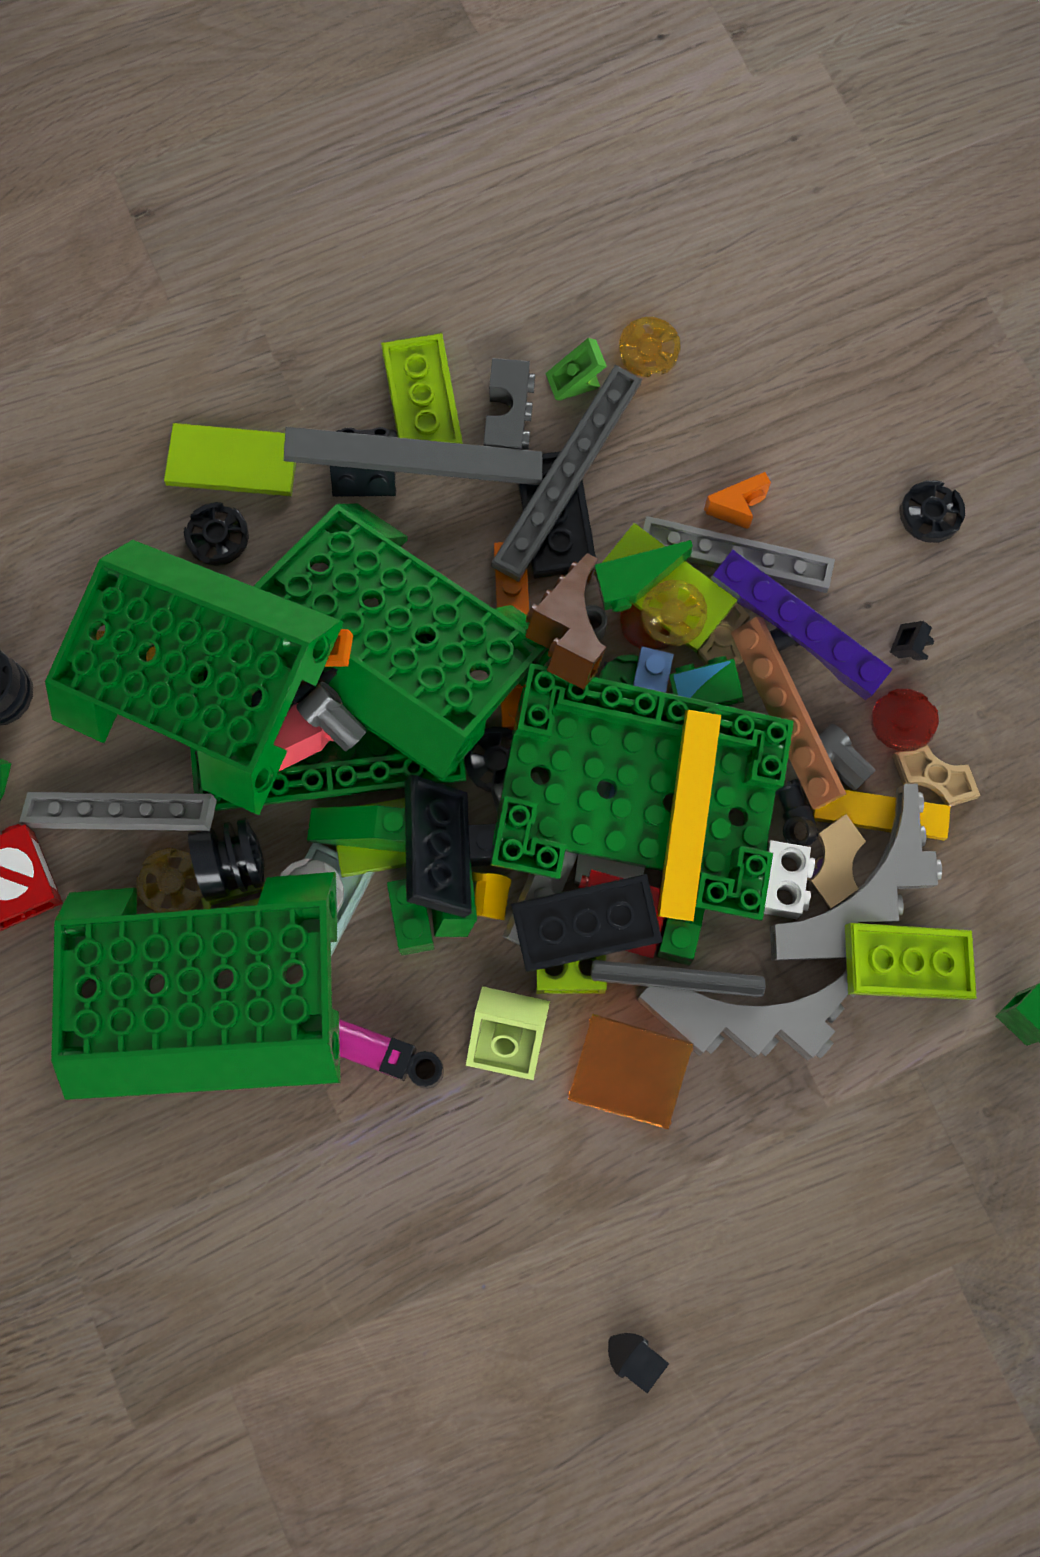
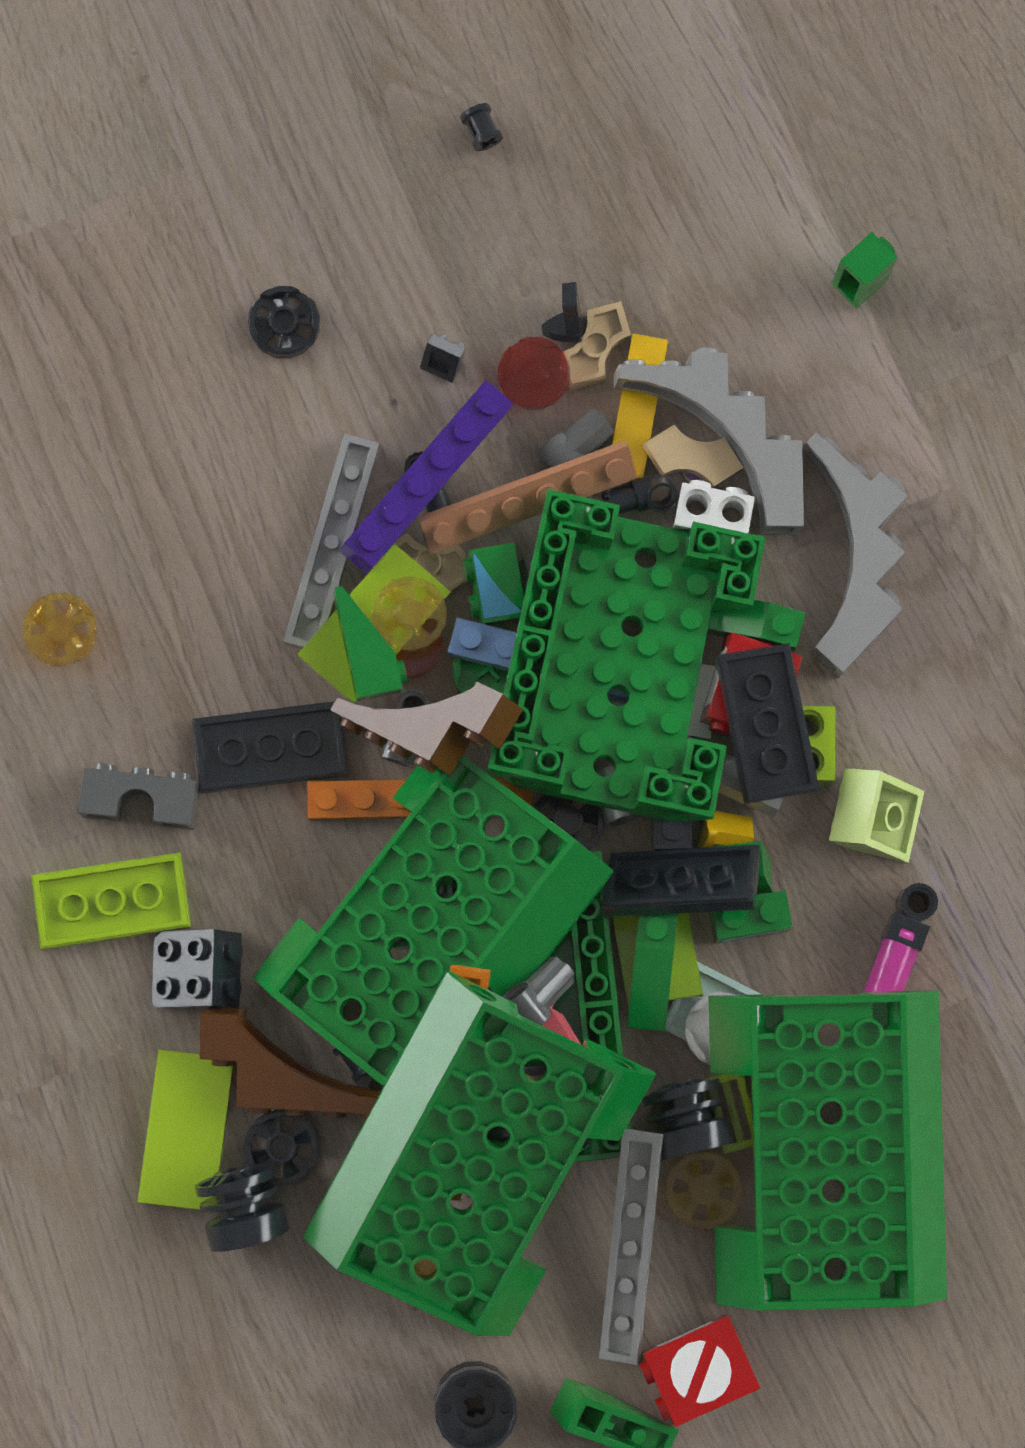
camera: 90 degrees left, 5 degrees up
(160, 494) = (243, 1212): none -> black wheel
(273, 514) = (269, 1075): none -> reddish brown arch
(412, 456) = (207, 907): dark grey tile -> none
(566, 473) = (224, 729): dark grey tile -> none
(577, 371) = (94, 714): bright green slope -> none
(630, 1071) = (918, 686): clear orange piece -> none
(678, 978) = (826, 630): dark grey axle -> none
(689, 815) = (655, 605): yellow tile -> none
(732, 501) = (270, 543): orange slope -> none
(910, 961) = (805, 389): lime tile -> none
(962, 748) = (568, 324): none -> black tile

